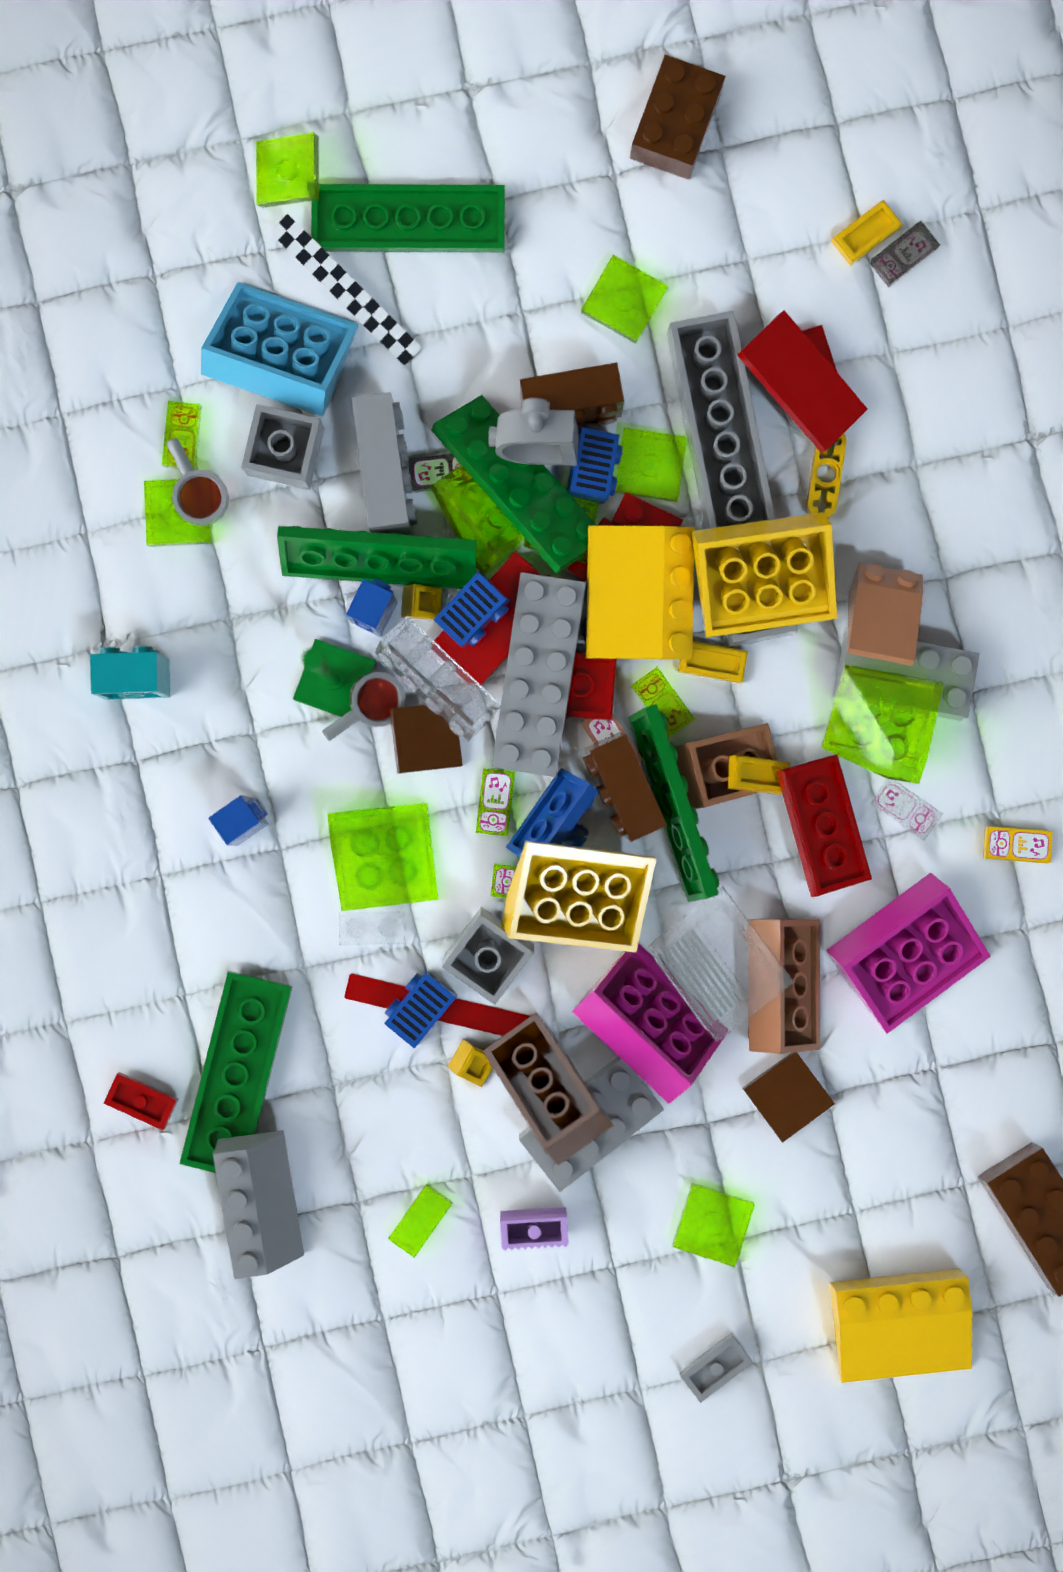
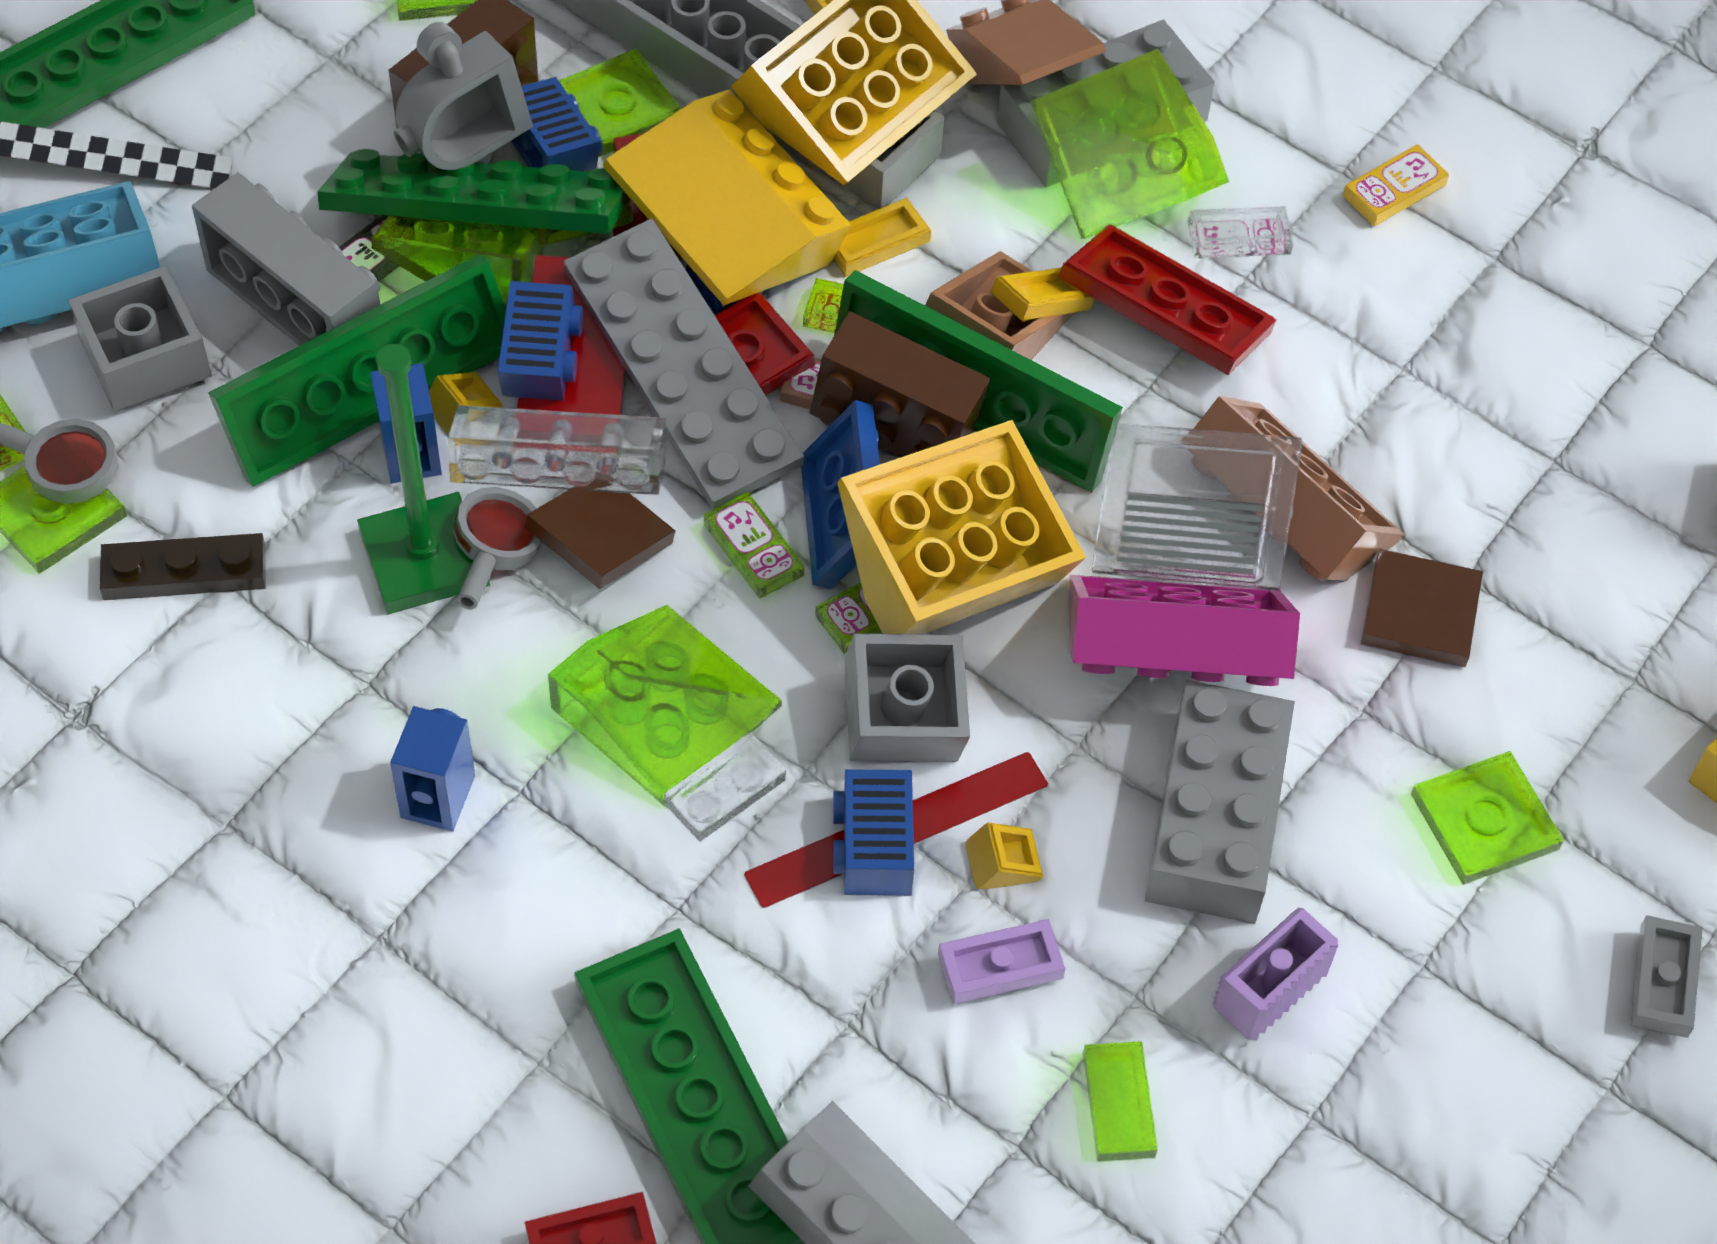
camera: 40 degrees left, 30 degrees down
(129, 675) = (136, 702): teal brick -> none
(216, 598) = (182, 566): none -> dark brown plate
(423, 1116) = (1001, 961): none -> lavender plate
(547, 1089) = (1131, 766): brick -> none
(909, 952) = (1394, 358): dark pink slope -> none

